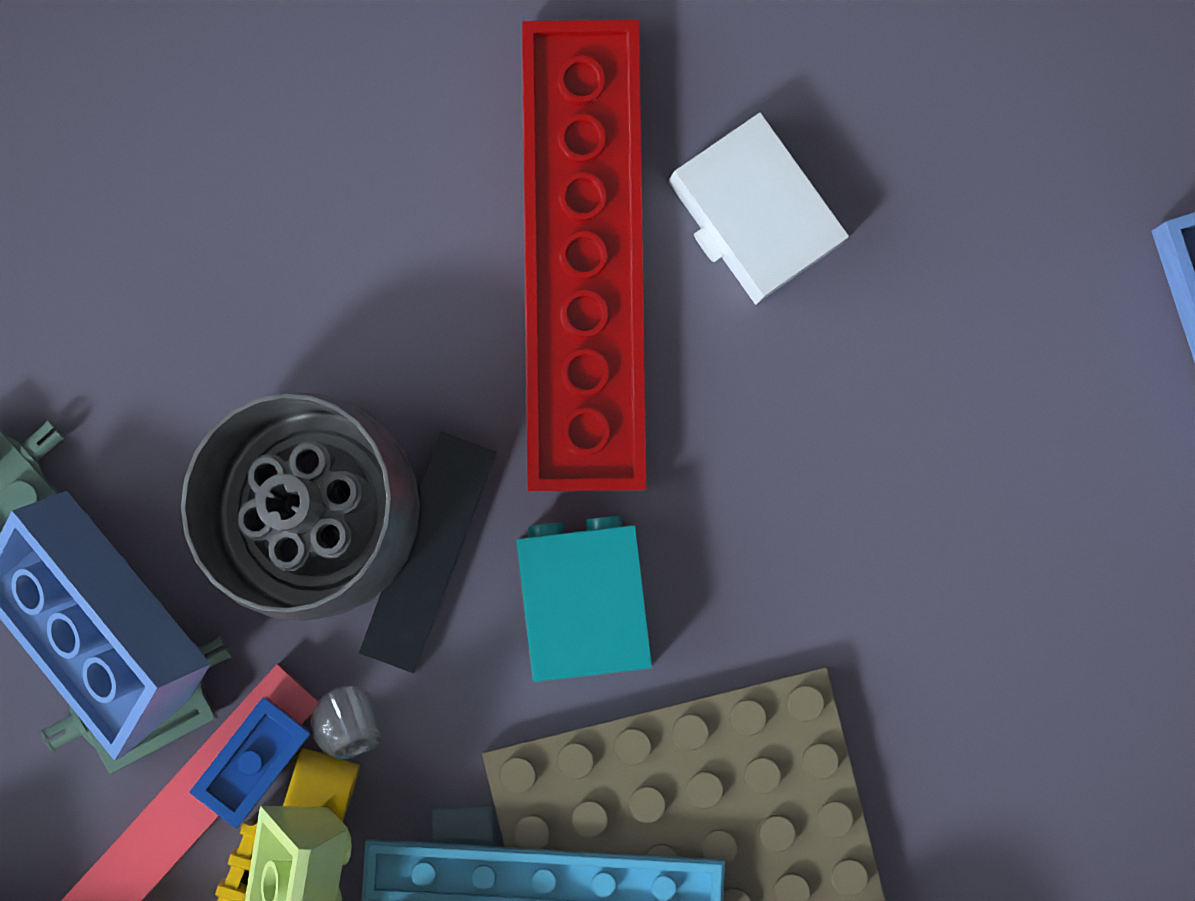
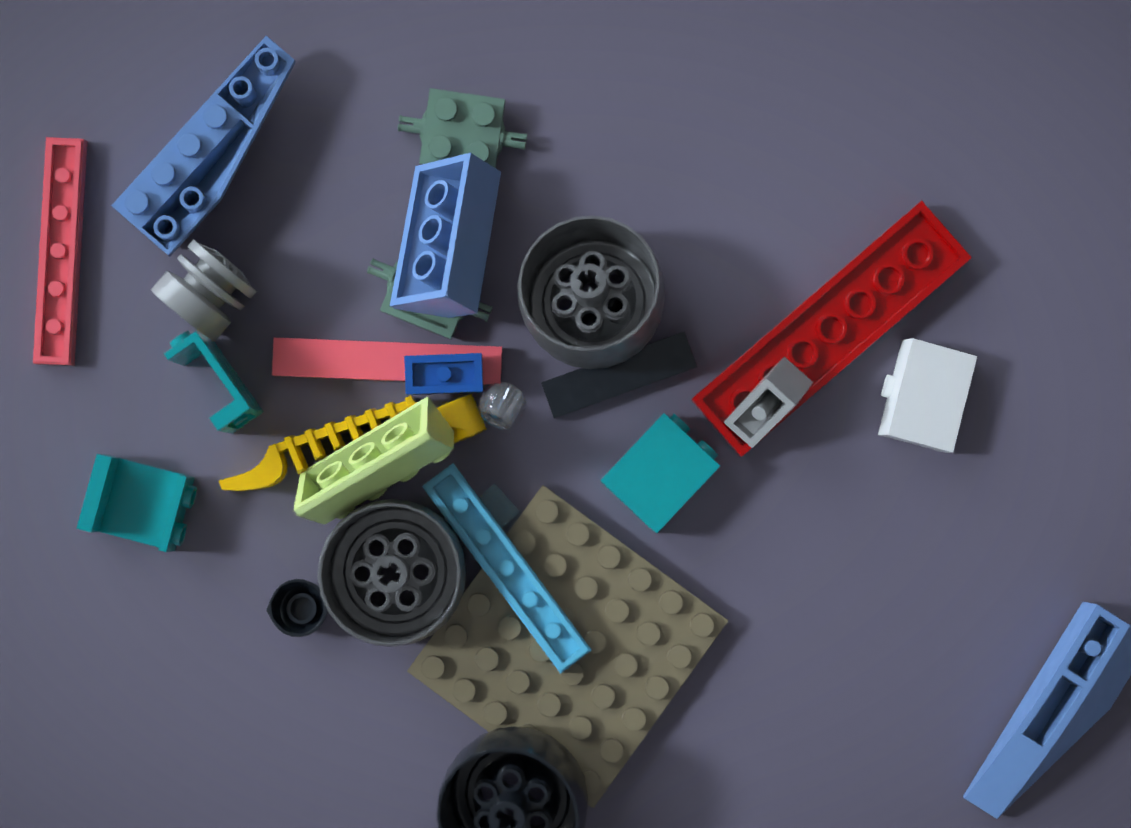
camera: 50 degrees right, 0 degrees up
(607, 405) = (768, 402): none -> light grey slope

